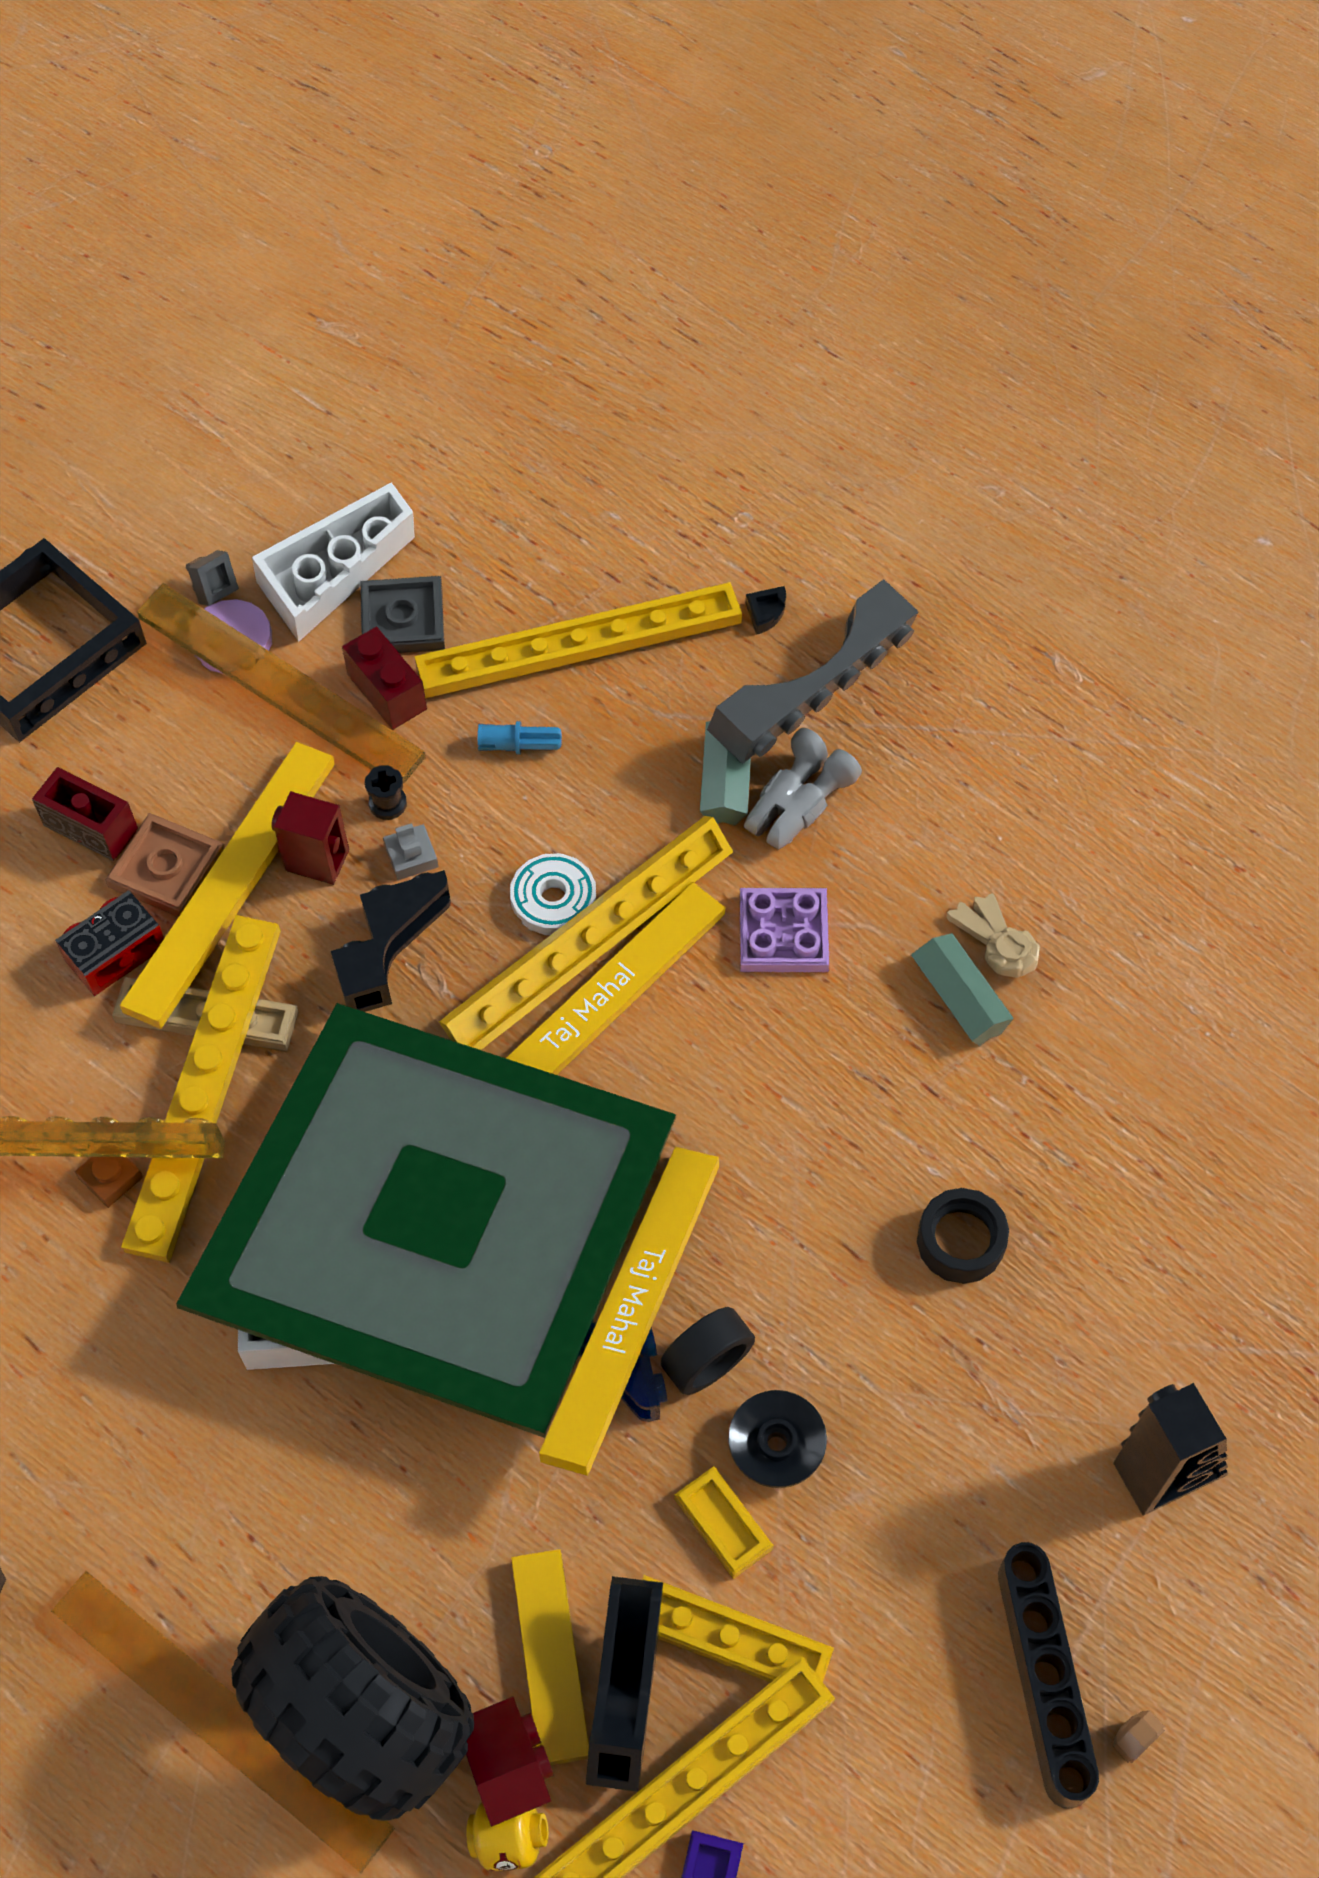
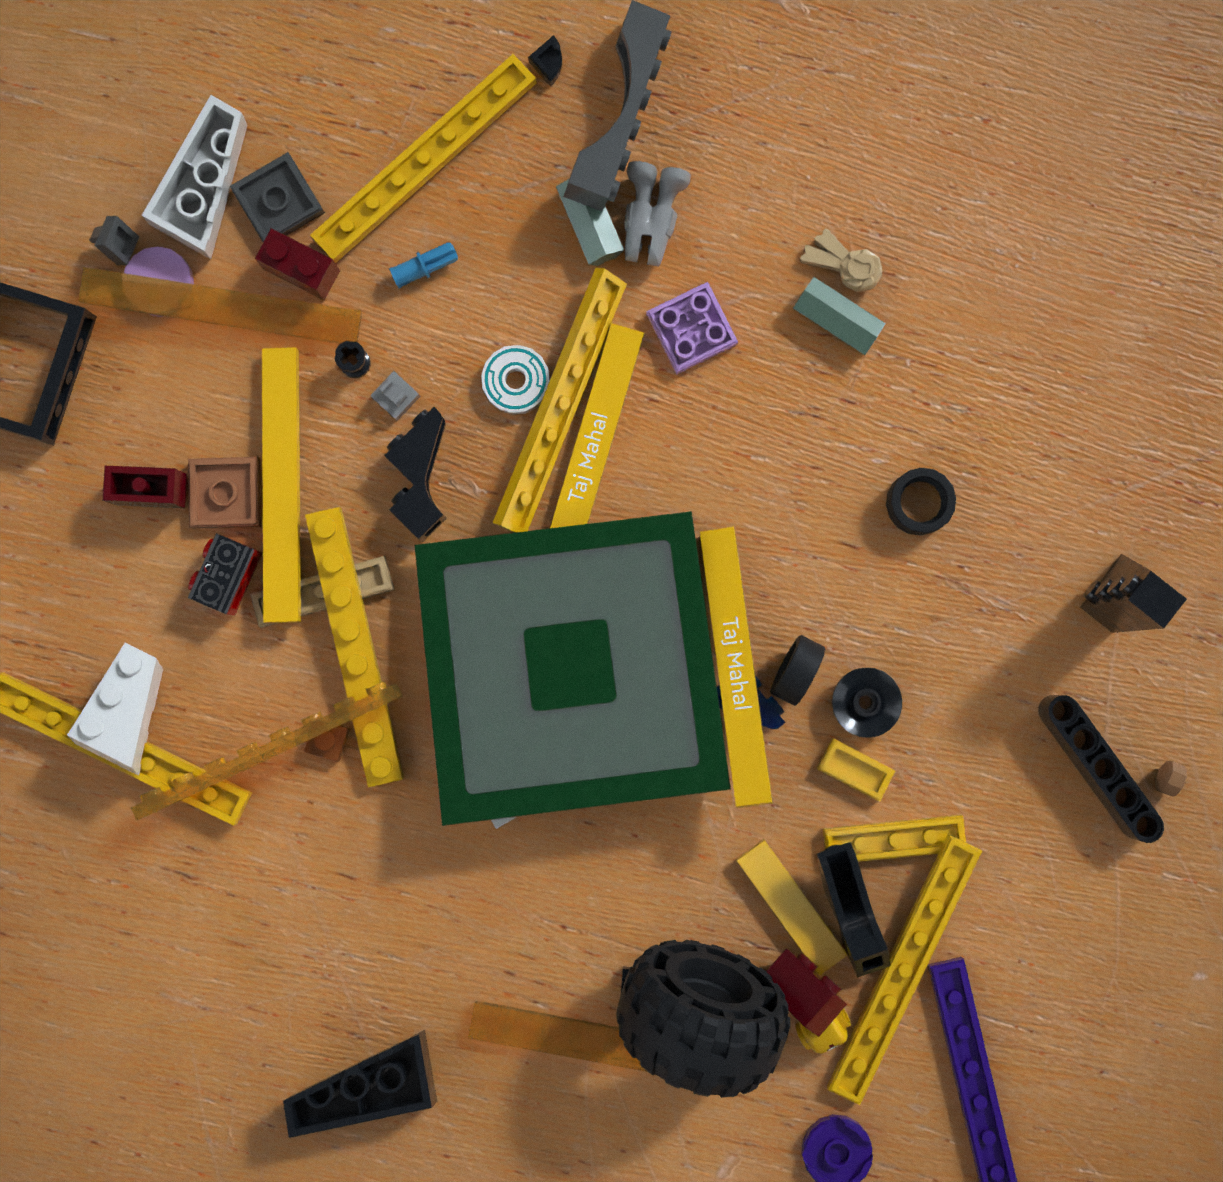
camera: 30 degrees left, 25 degrees up
(311, 837) = (322, 427): dark red brick -> none

